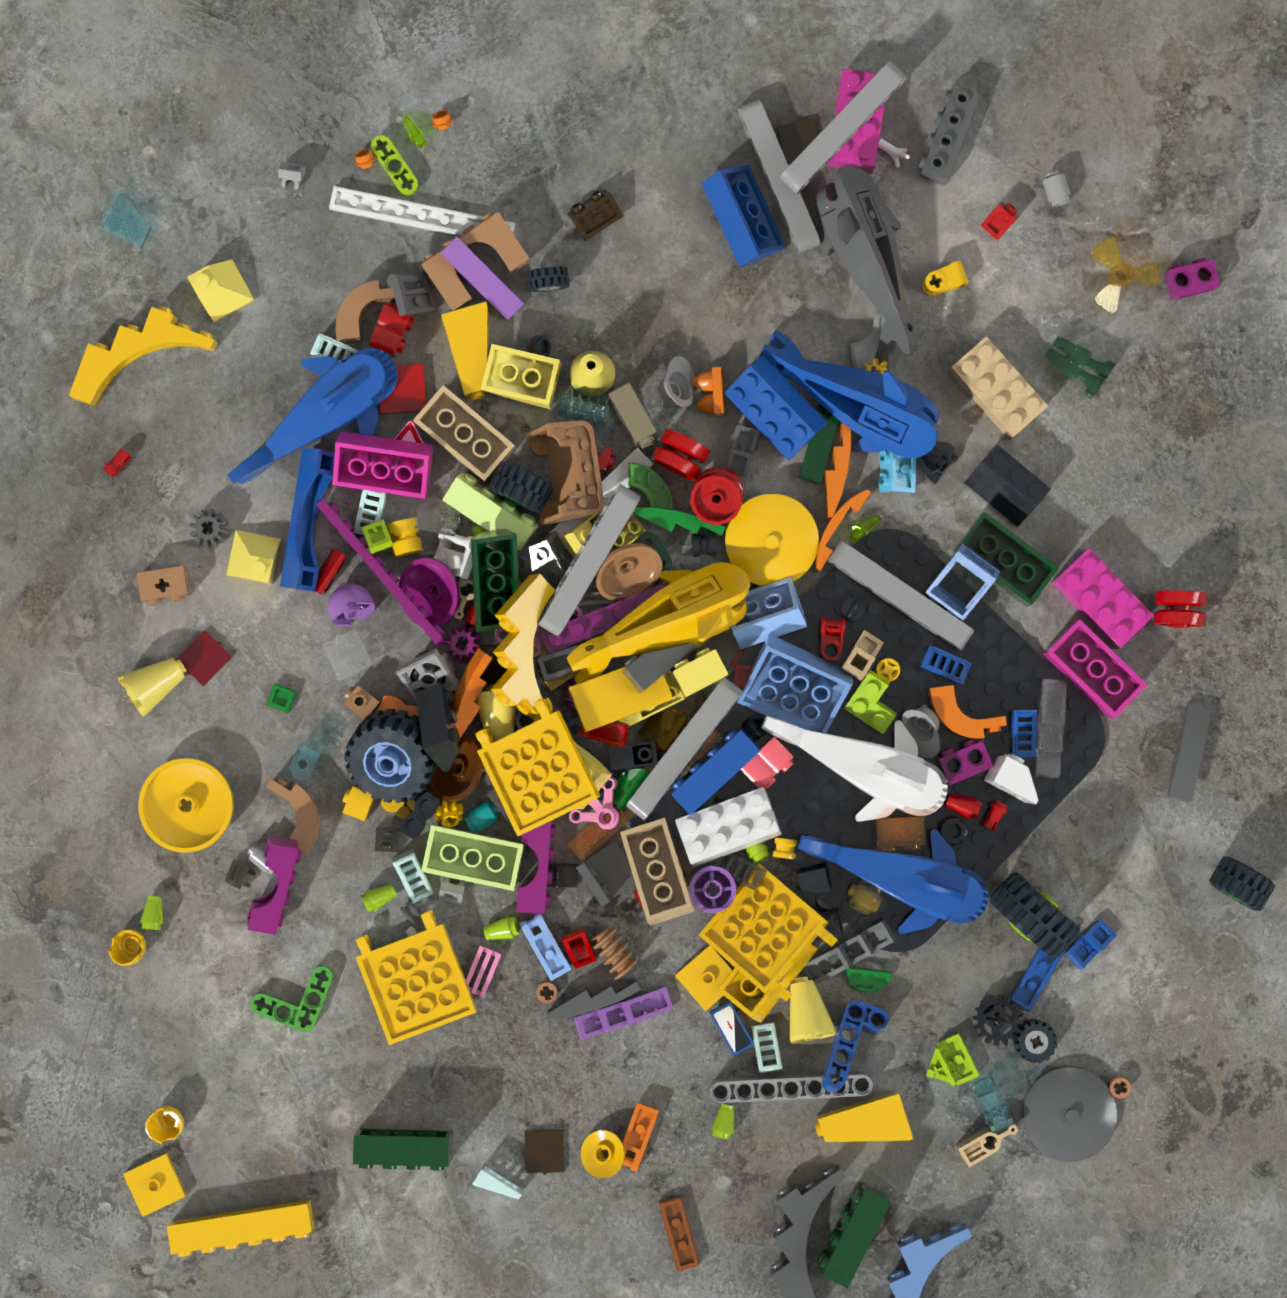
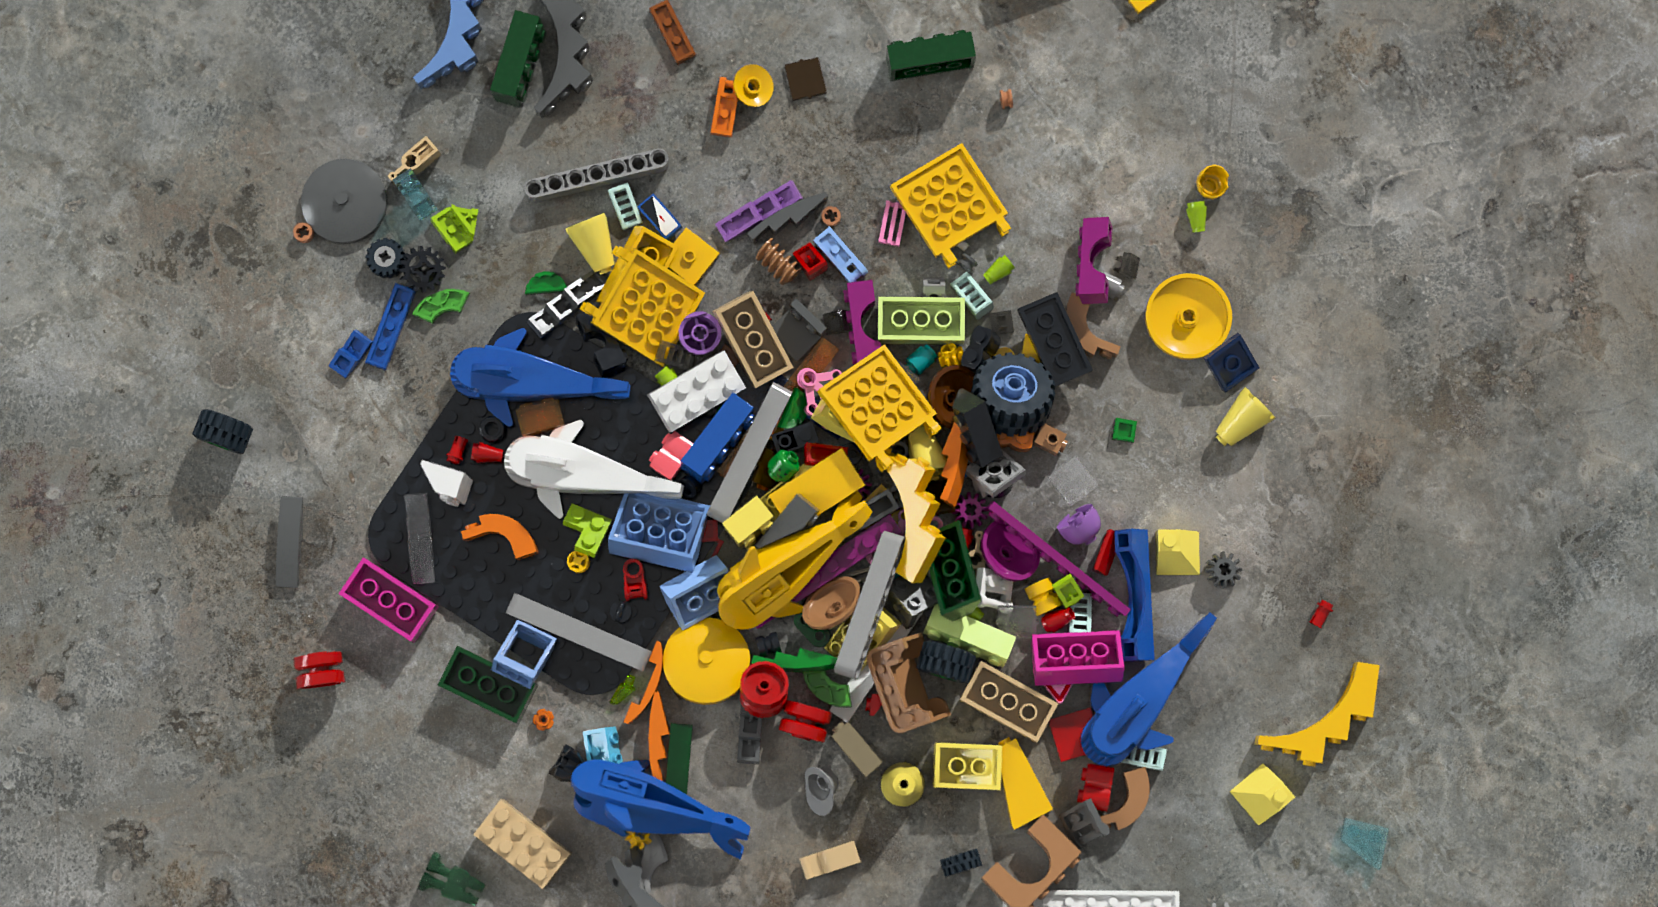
camera: 175 degrees right, 5 degrees down
(151, 580) = (1243, 519): medium nougat brick -> none
(151, 747) = (1231, 362): none -> dark blue tile
(164, 1124) = (1145, 36): yellow hair -> none
(204, 658) = (1202, 452): dark red piece -> none
(297, 1011) = (1050, 157): bright green beam -> none
(311, 756) = (1091, 383): clear light blue brick -> none
(331, 1084) = (1006, 99): none -> nougat bush
(334, 807) = (1055, 339): none -> black plate
(394, 510) = (1057, 619): none -> red cone
(482, 278) = (1022, 851): medium lavender slope -> none
(494, 1182) = (844, 43): light aqua slope -> none
(502, 929) = (882, 263): lime cone -> none
(539, 345) = (956, 798): black tile -> none
(584, 407) = (902, 749): clear light blue piece -> none
(651, 727) = (783, 466): none -> green head
(682, 310) = (830, 860): none -> tan piece
(711, 381) = (792, 797): orange tile -> none
(724, 1122) = (650, 132): lime cone -> none
(775, 407) = (725, 782): blue brick -> none
(785, 848) = (641, 383): yellow wheel -> none
(848, 1047) = (552, 217): blue beam -> none
(862, 655) = (604, 568): tan brick -> none
(864, 897) = (562, 352): clear yellow head -> none
(869, 1120) = (523, 159): yellow slope -> none
(923, 727) = (536, 515): light grey piece -> none
(934, 669) = (542, 583): blue slope -> none
(953, 519) = (537, 719): none -> orange plate
(966, 767) = (490, 487): magenta brick -> none
(985, 980) = (440, 303): none -> bright green tile
(1007, 485) = (498, 754): black slope -> none
(1032, 733) = (446, 546): blue slope -> none
(1034, 915) = (405, 365): black wheel -> none
(1102, 598) = (392, 666): dark pink brick -> none

